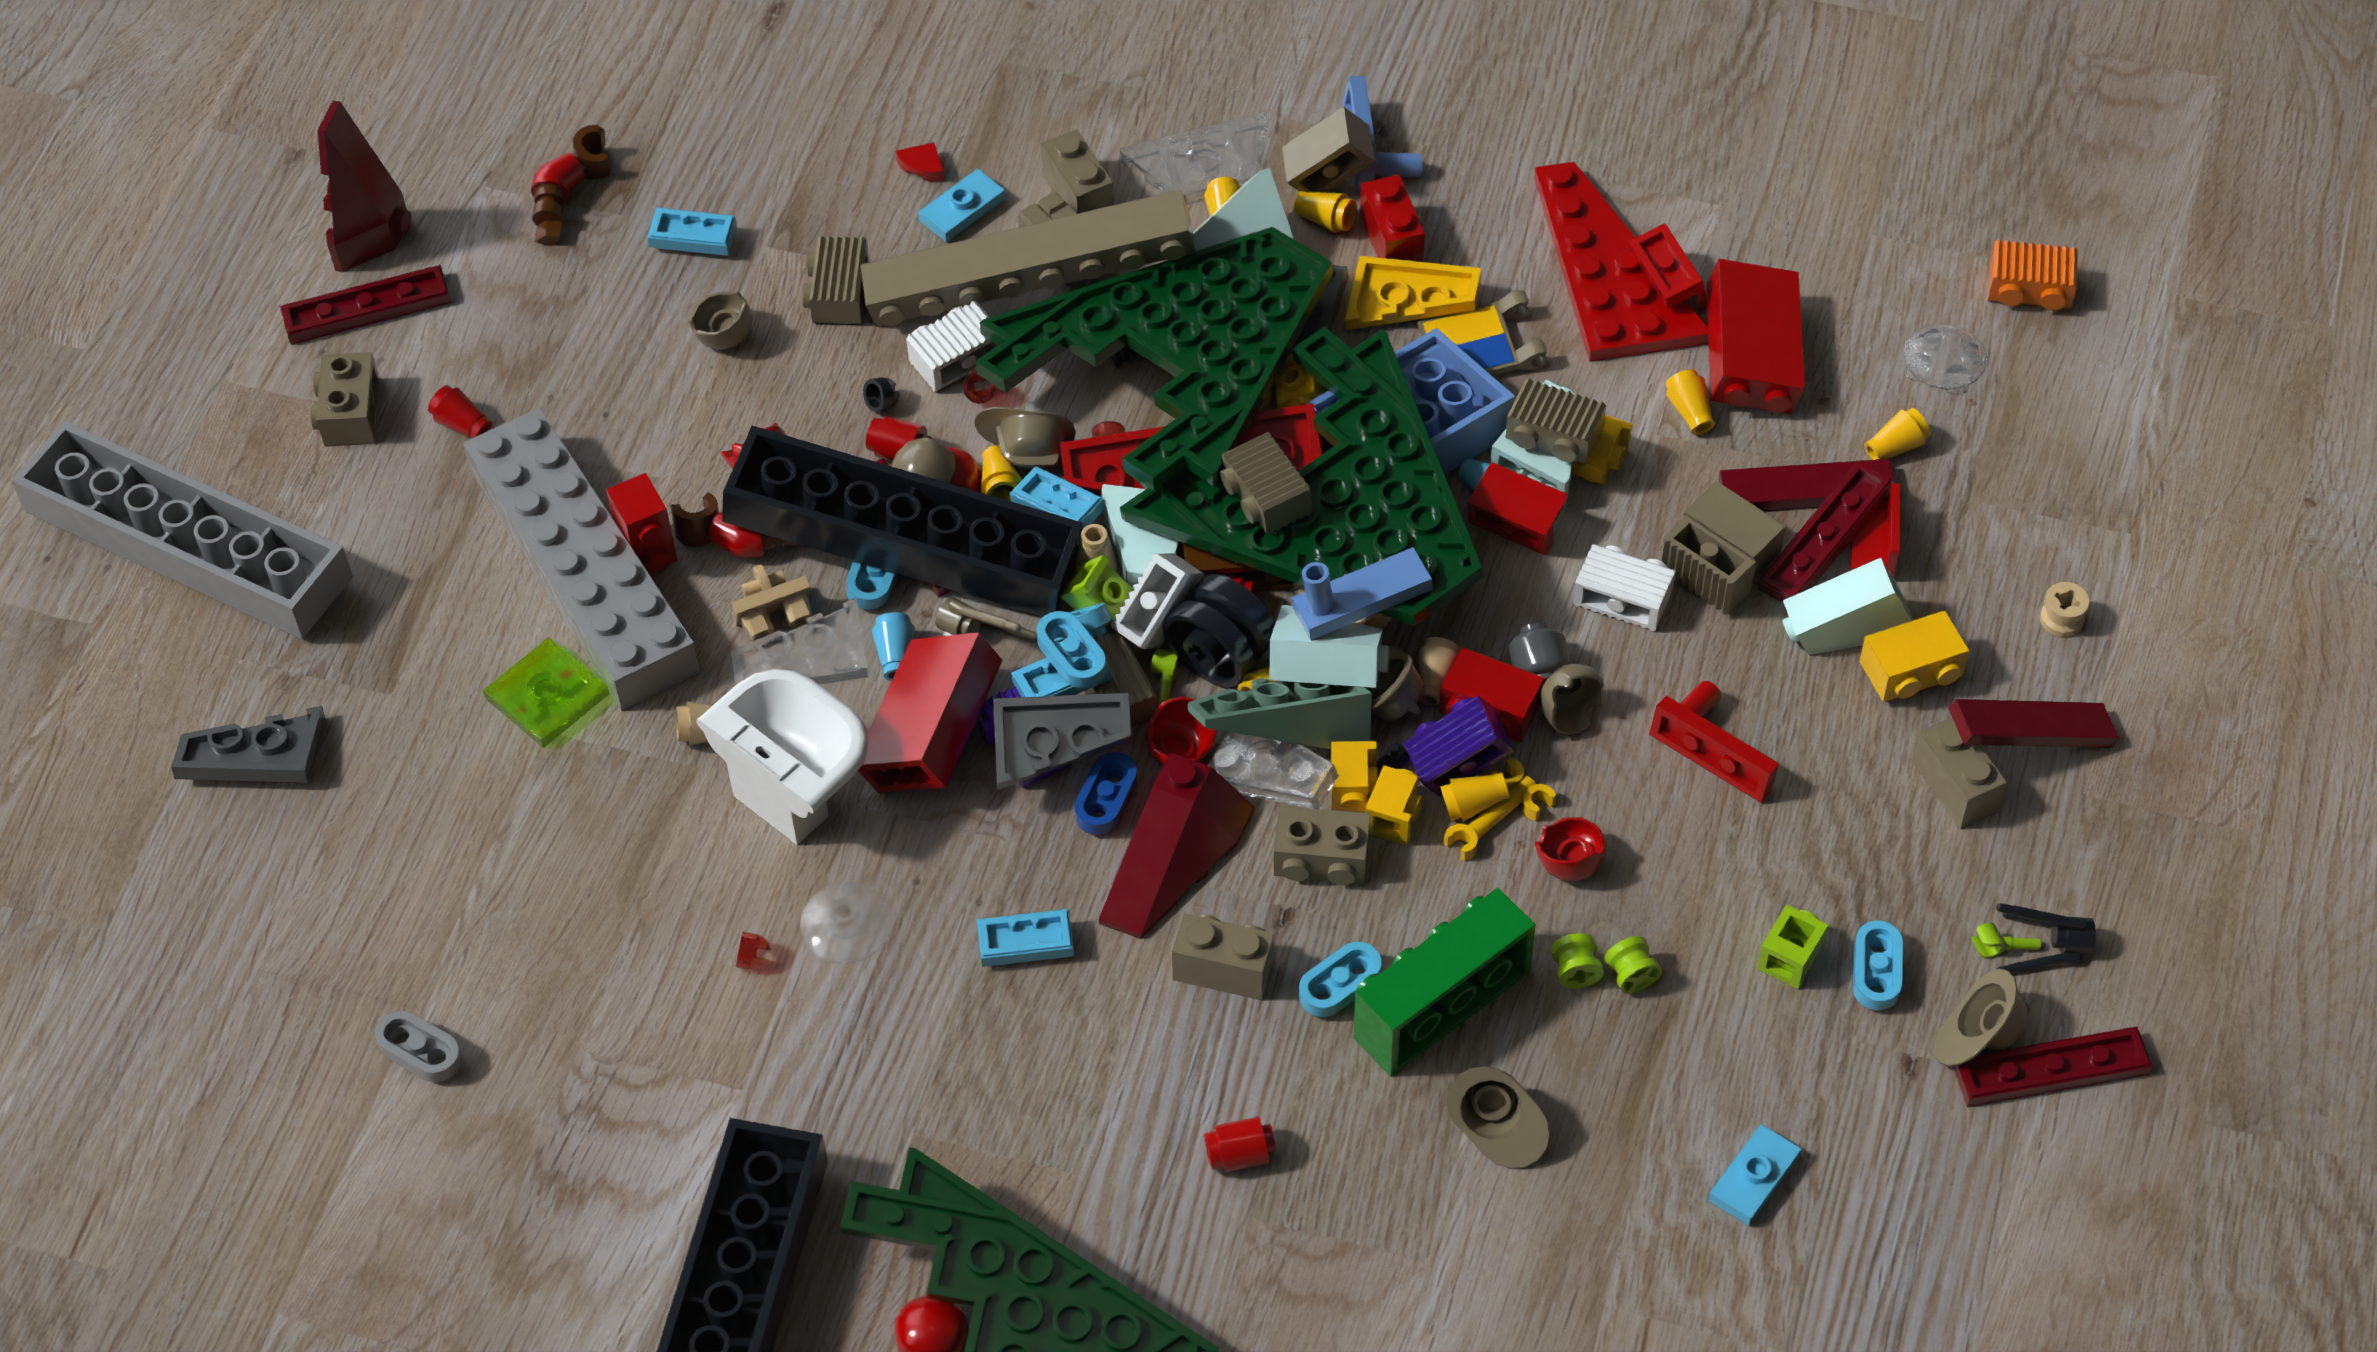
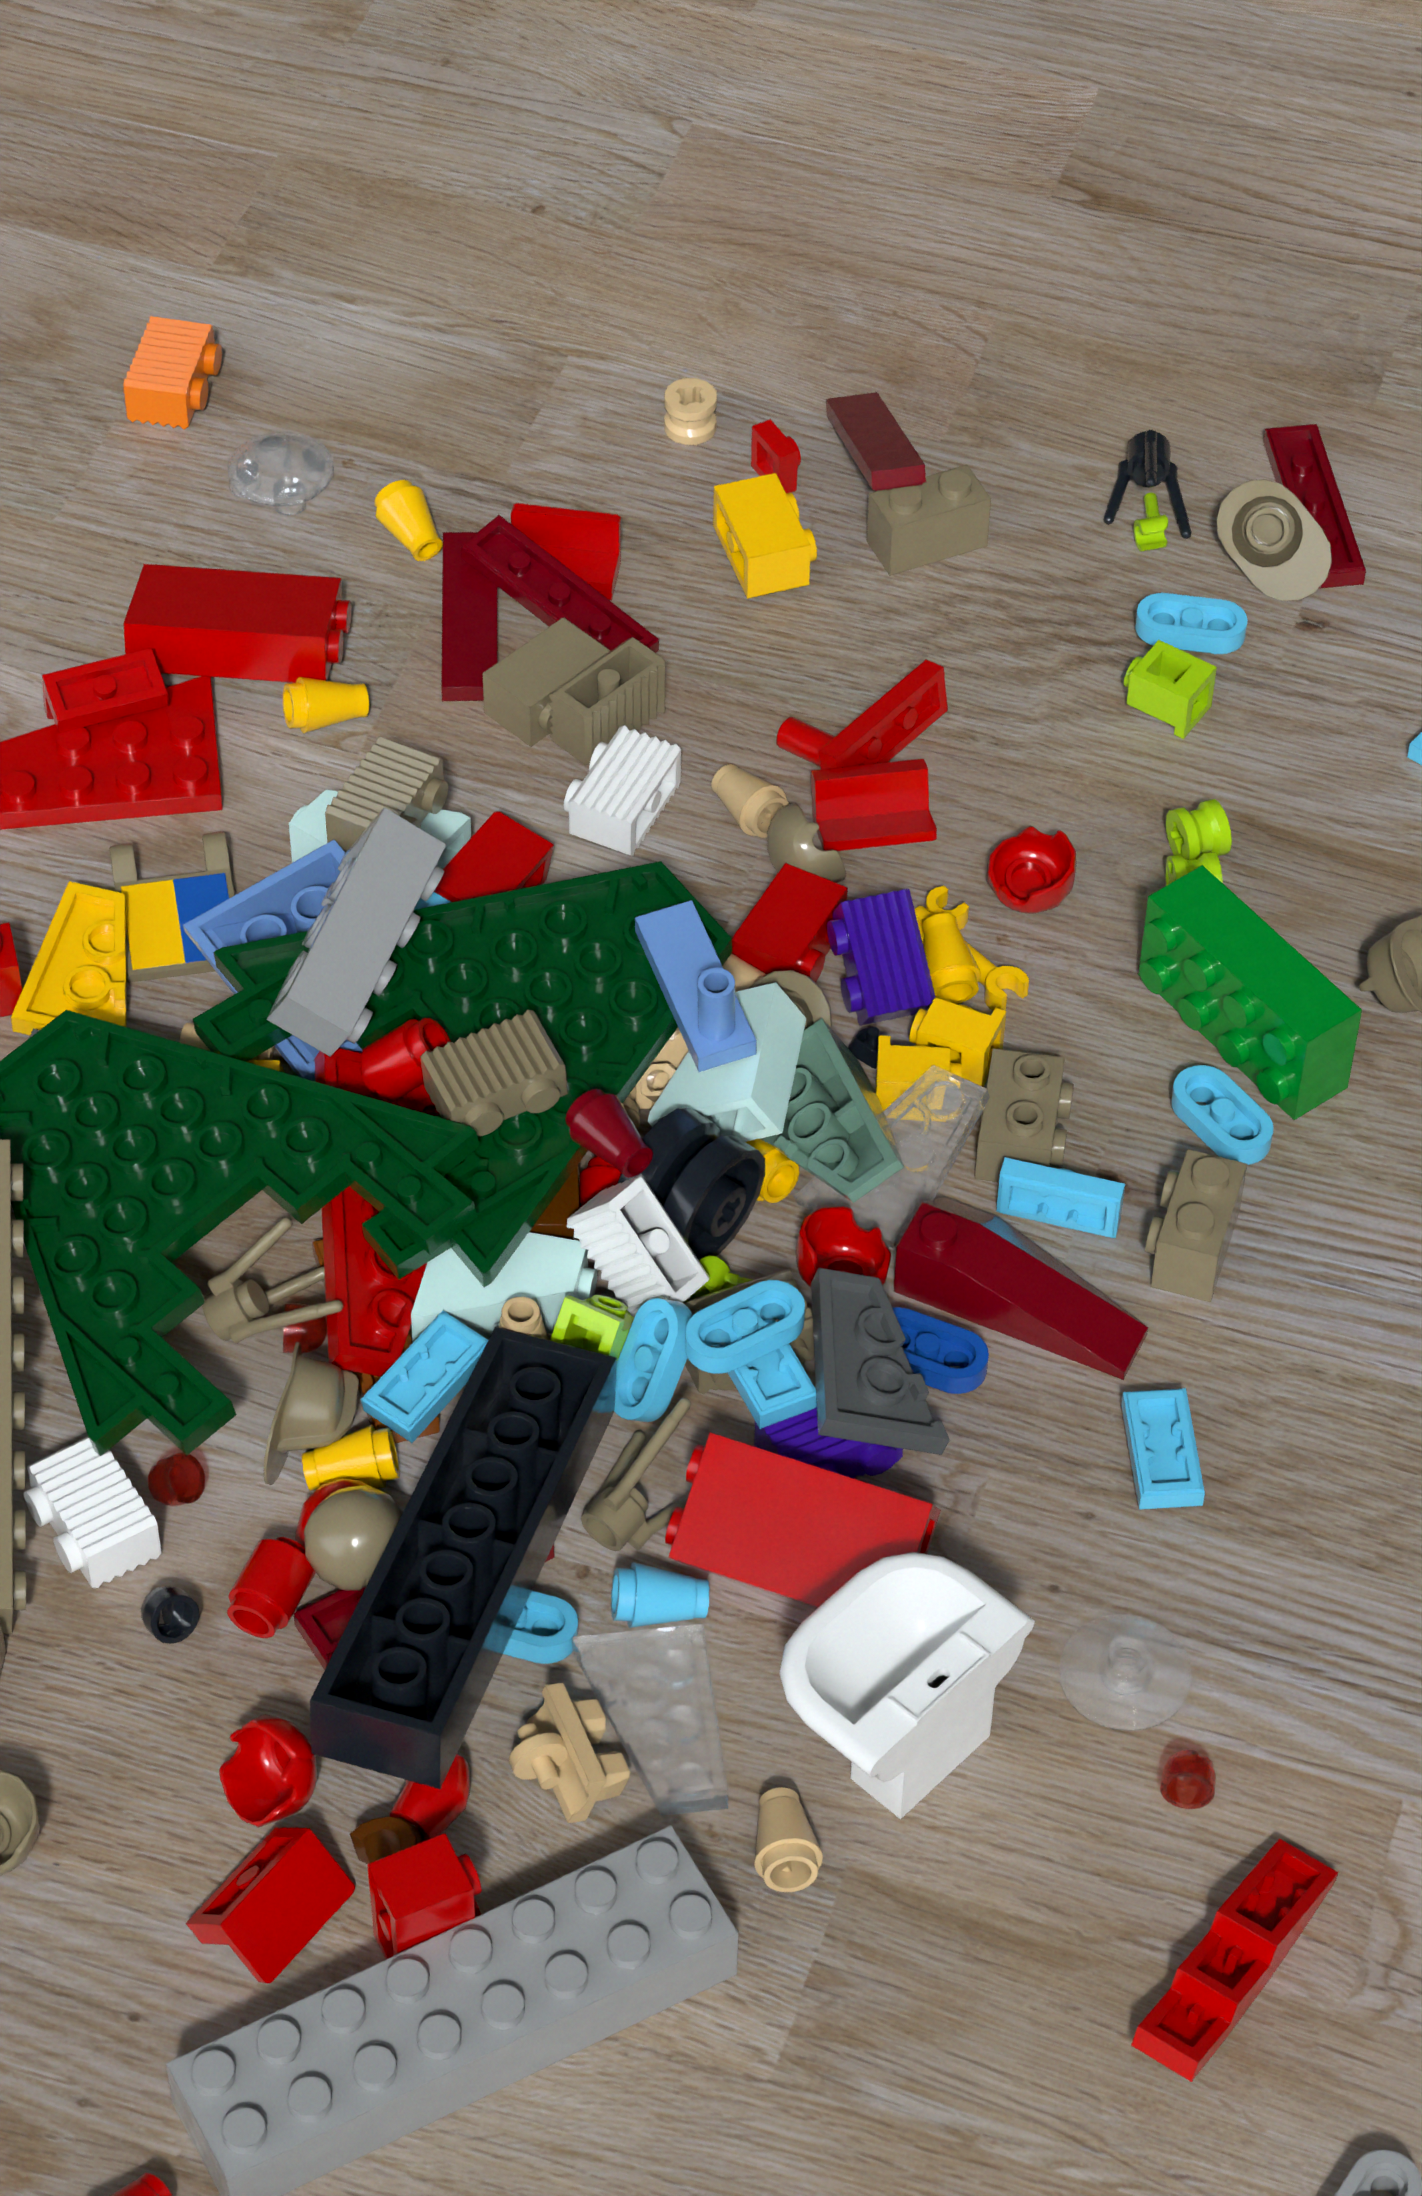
camera: 90 degrees left, 5 degrees down
(546, 692) = (703, 2076): clear neon green tile -> none
(612, 978) = (1234, 1959): none -> red slope
(671, 464) = (274, 1902): none -> red panel
(1118, 402) = (237, 1307): none -> dark tan plant
(1224, 552) = (606, 1130): none -> dark red cone
(1248, 871) = (1060, 1197): none -> medium azure plate
(1306, 450) = (394, 1062): none -> red brick
(1381, 388) = (357, 931): none -> light grey wedge
(1539, 650) = (731, 877): dark grey head -> none
(1627, 745) = (872, 805): none -> red panel
(1629, 667) = (748, 798): none -> tan cone
(1846, 609) = (690, 580): light aqua slope -> none
(2016, 666) = (775, 453): none -> red plate

